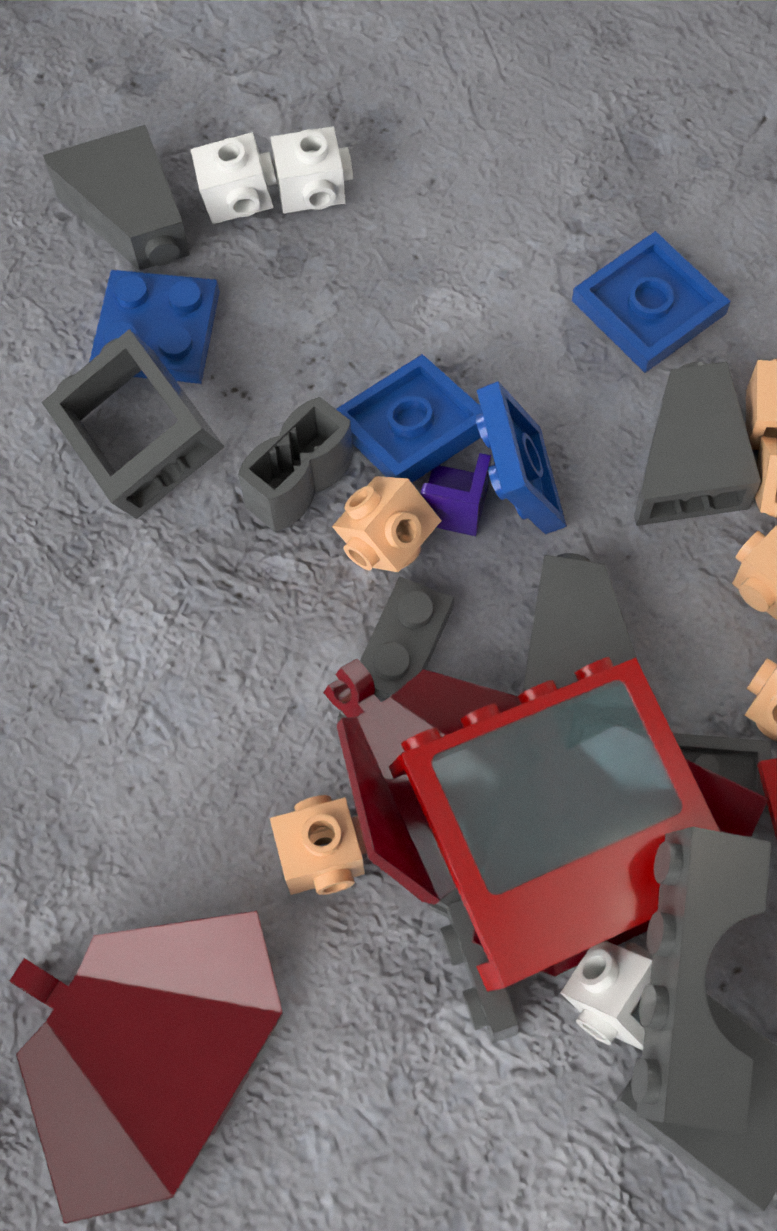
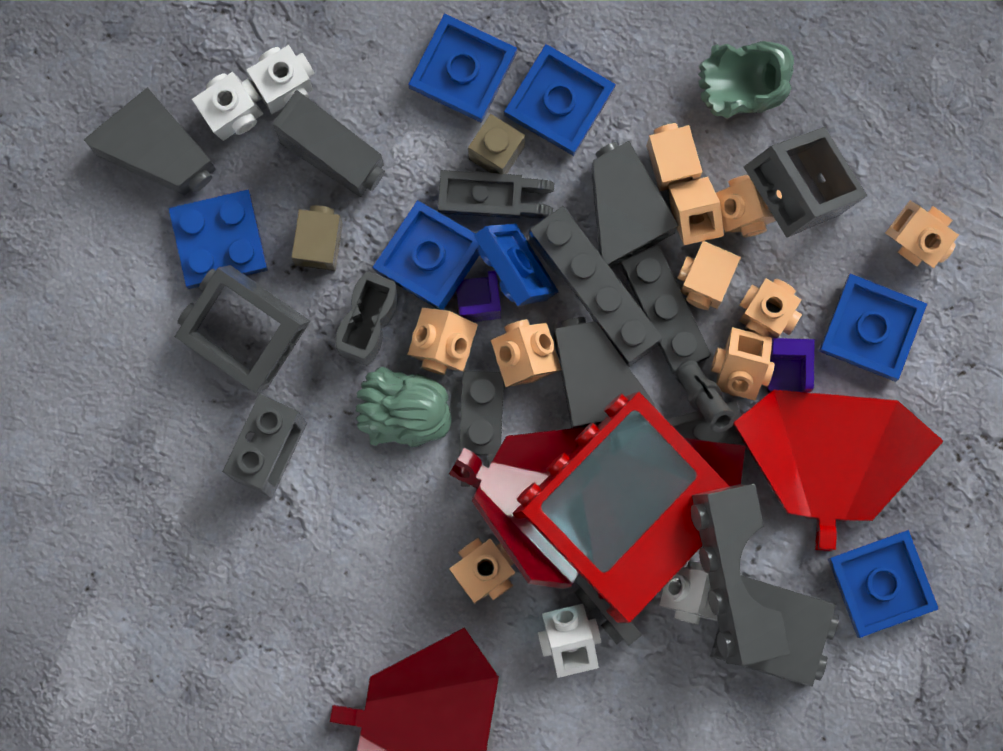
camera: 25 degrees left, 15 degrees up
(106, 547) = (266, 457): none -> dark grey window
(275, 358) = (317, 238): none -> dark tan brick
(298, 596) = (402, 408): none -> sand green hair
(333, 249) = (328, 145): none -> dark grey slope
(406, 994) = (570, 640): none -> white brick
(492, 579) = (525, 353): none -> light nougat brick
(529, 379) = (491, 194): none -> dark grey hinge
(539, 230) = (463, 68): none -> blue plate
(548, 323) = (496, 146): none -> dark tan brick
(605, 486) = (595, 285): none -> dark grey arch
(706, 596) = (665, 307): none -> dark grey plate
(728, 717) = (705, 396): none -> dark grey pin

